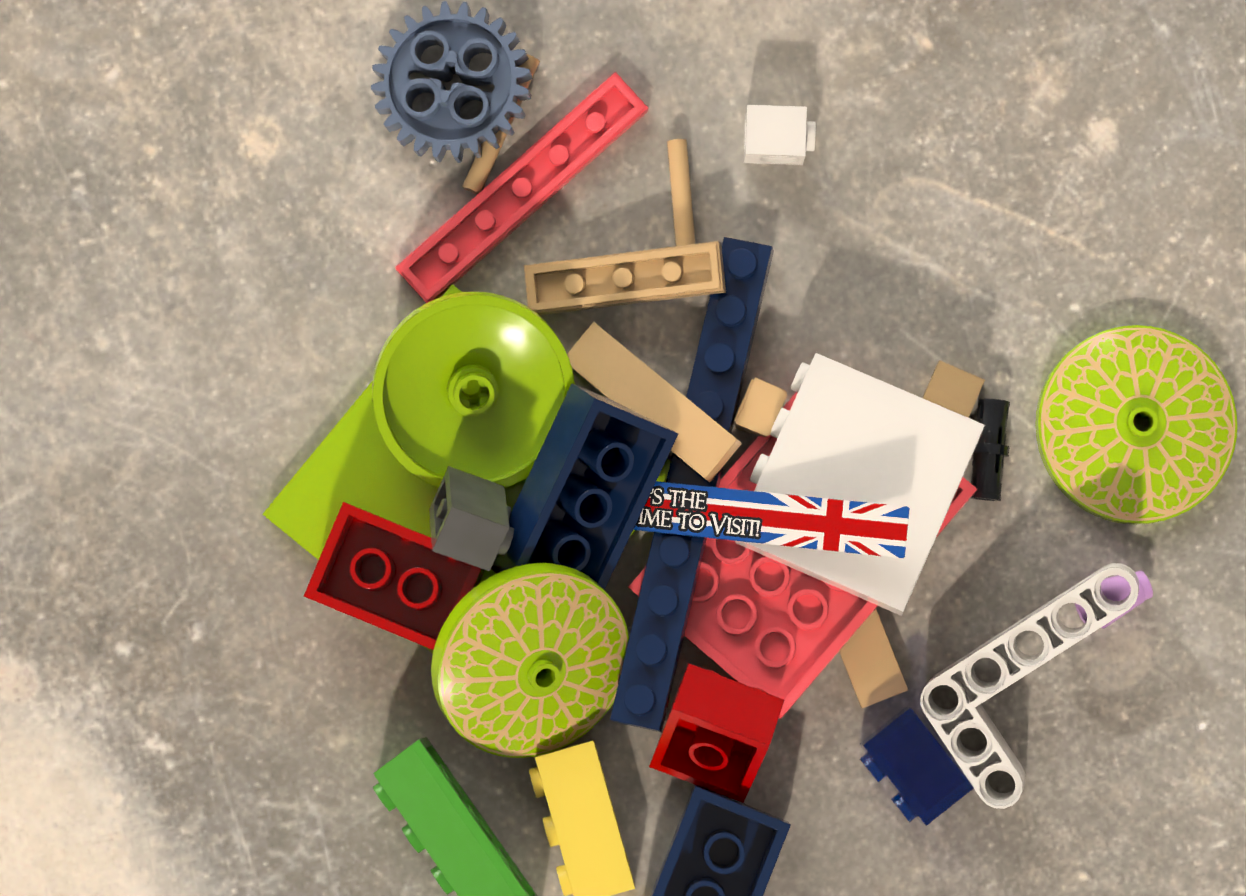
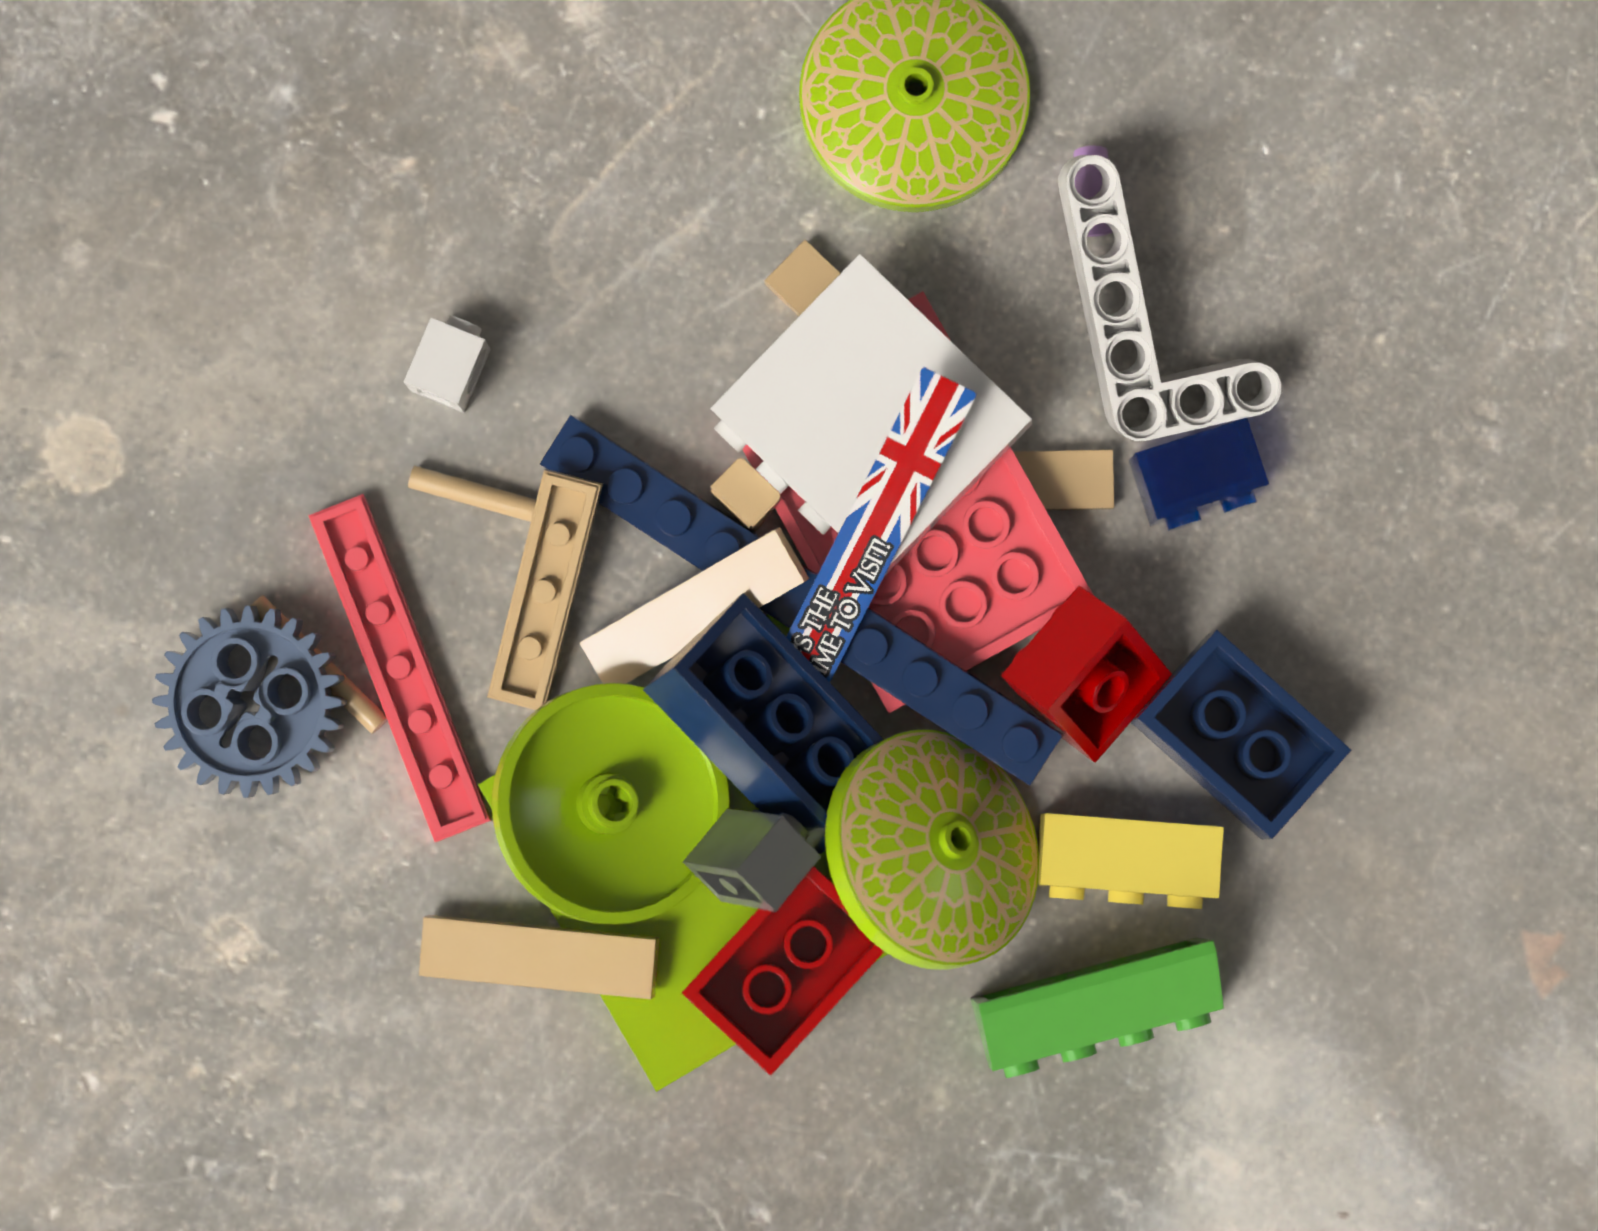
camera: 75 degrees left, 0 degrees up
(334, 383) = (539, 956): none -> tan tile
(990, 449) = (899, 269): black pin -> none

